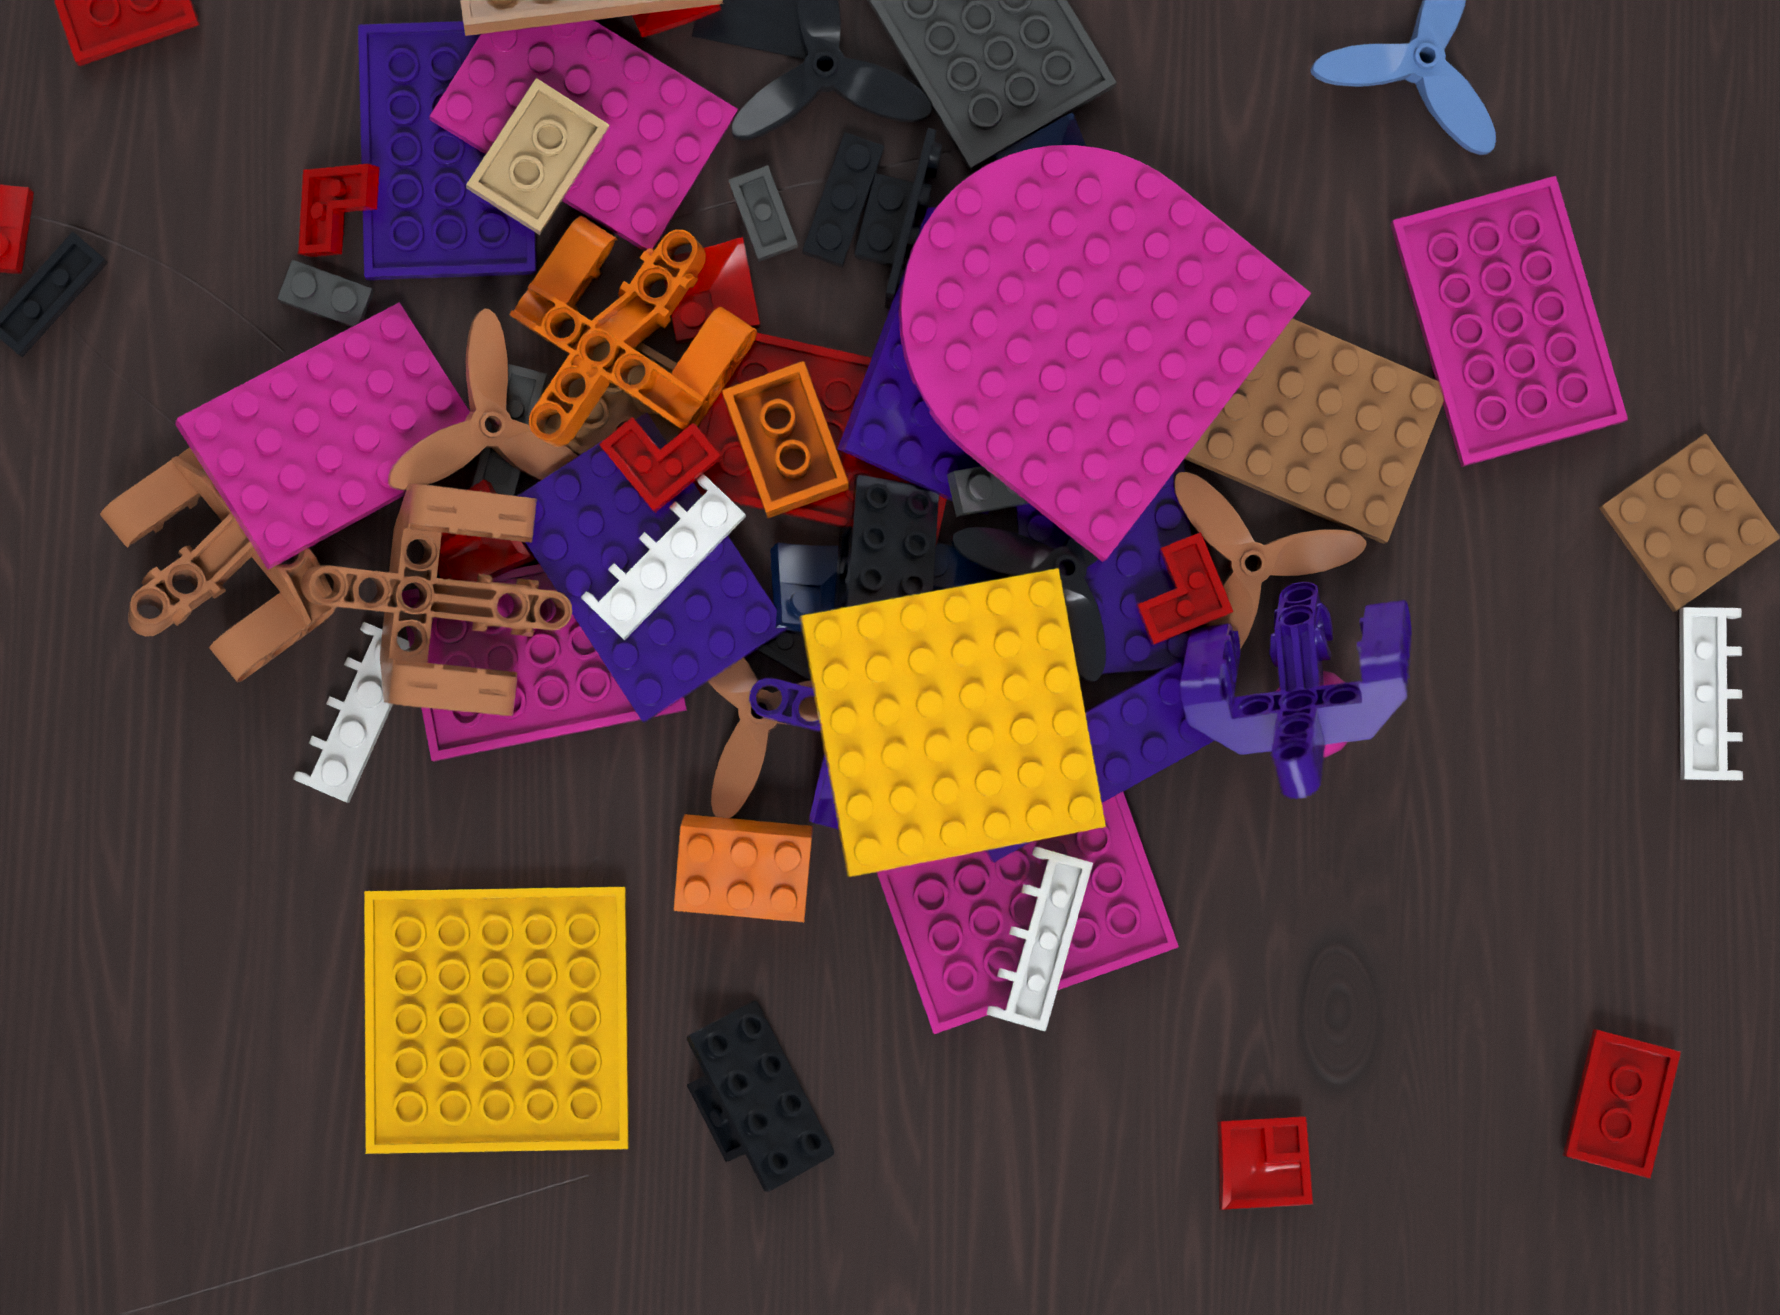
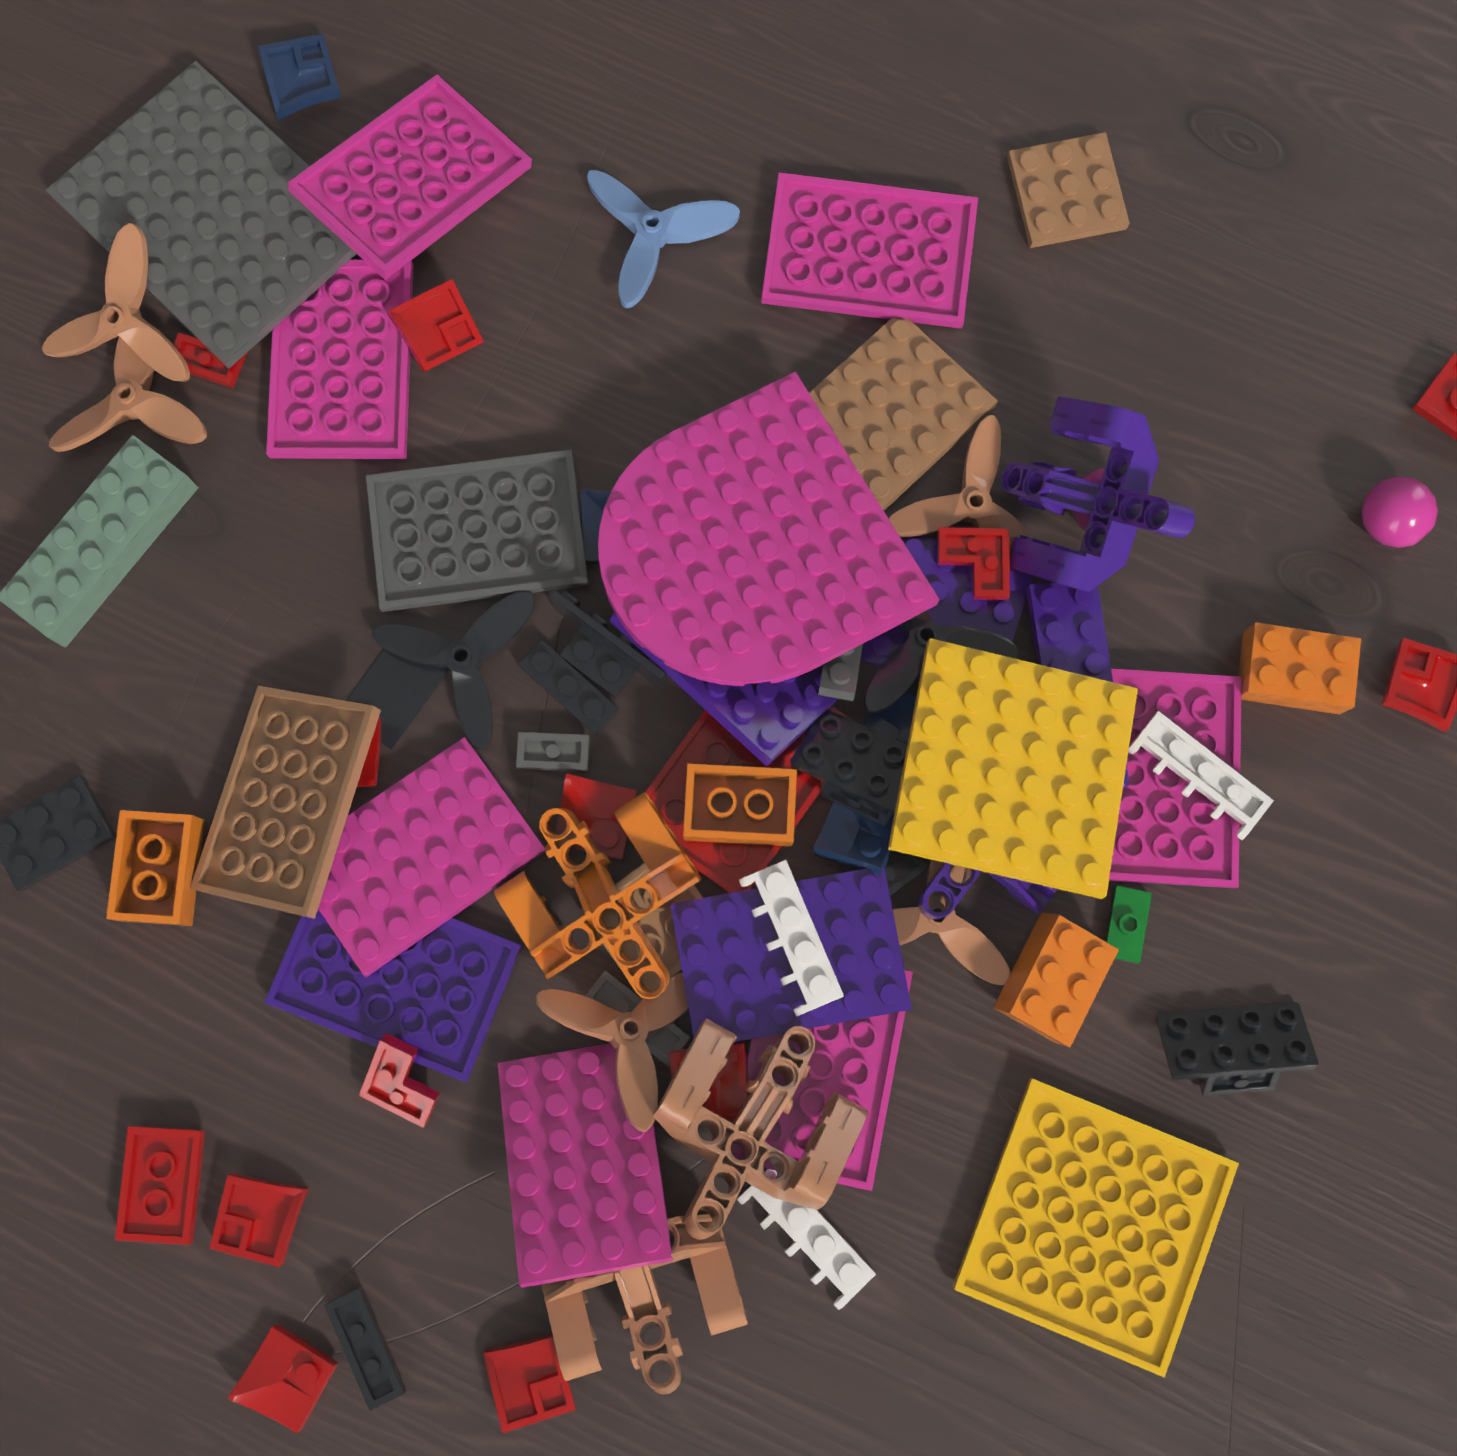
camera: 60 degrees left, 5 degrees down
(81, 479) = (527, 1382): none -> red plate
(131, 121) = (257, 1219): none -> red plate
(325, 294) = (465, 1119): dark grey plate -> none
(537, 156) = (435, 903): tan plate -> none
(662, 472) = (725, 914): red plate -> none
(842, 928) = (1128, 922): none -> green plate
(1216, 1008) = (1299, 668): none -> orange brick
(1453, 1055) = (1399, 512): none -> dark pink piece
(1706, 694) = (1198, 229): white hinge -> none

